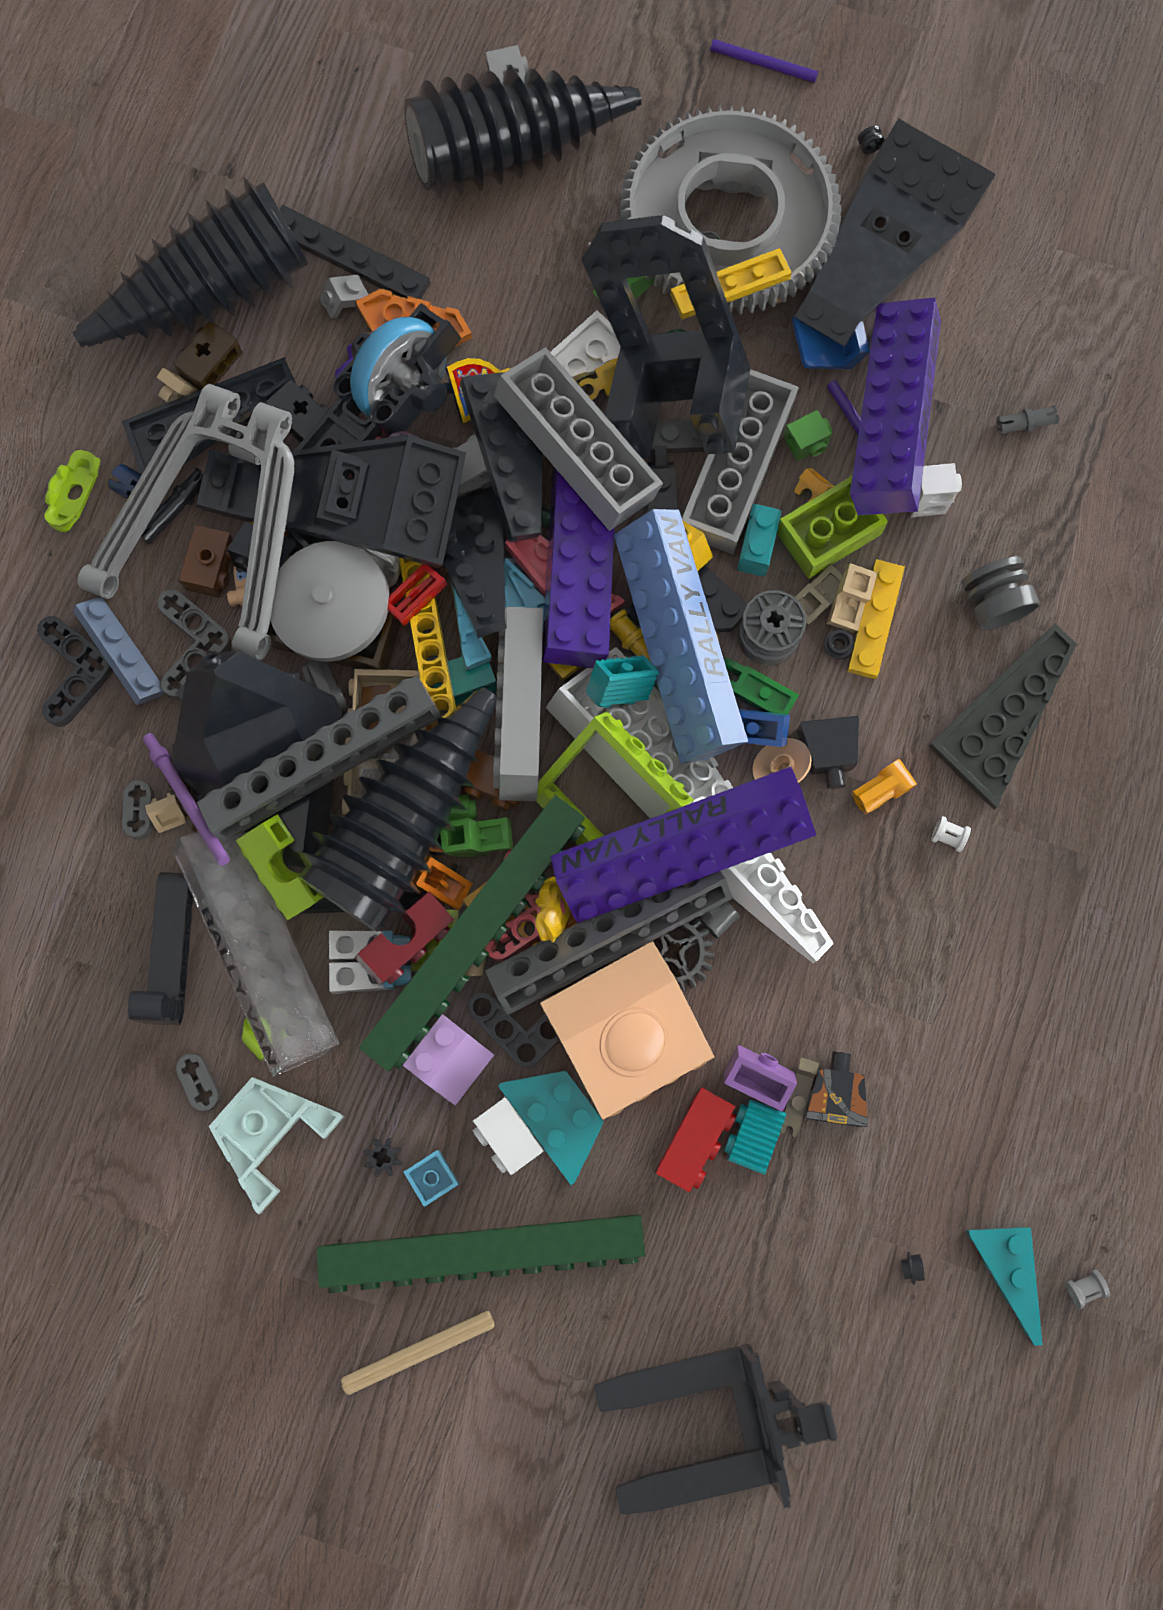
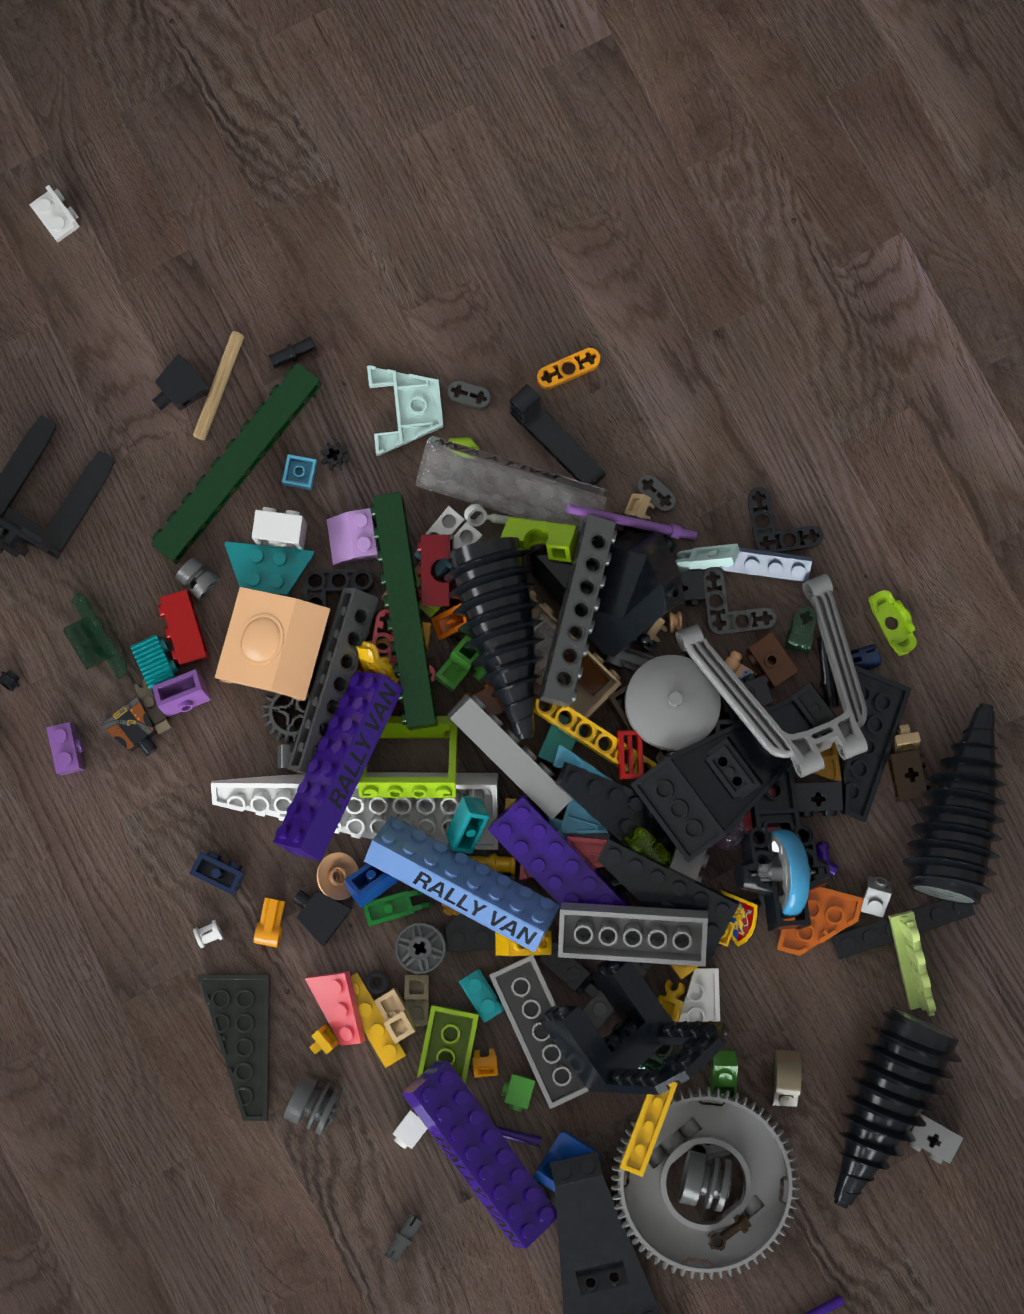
camera: 140 degrees right, 5 degrees up
(66, 992) = (549, 369): none -> light orange beam
(152, 695) = (707, 557): none -> light aqua hinge
(156, 559) = (800, 634): none -> clear green piece
(309, 946) = (494, 518): none -> white piece
(313, 1307) = (292, 352): none -> black pin
(372, 207) = (912, 962): none -> yellowish green fence
(454, 1393) = (179, 385): none -> black torso
(485, 508) = (643, 841): none -> clear neon green hinge
(571, 230) = (787, 1078): none -> dark tan brick
(633, 1175) = (201, 581): none -> flat silver wheel
(731, 190) = (705, 1181): none -> dark grey wheel
(768, 147) = (718, 1240): none -> dark brown bar
(796, 1222) = (90, 639): none -> clear green bracket
(889, 875) = (218, 873): none -> dark blue brick
(892, 656) = (339, 1005): none -> coral wing
(921, 1140) = (66, 748): none -> medium lavender brick
(936, 639) = (324, 1039): none -> yellow tile

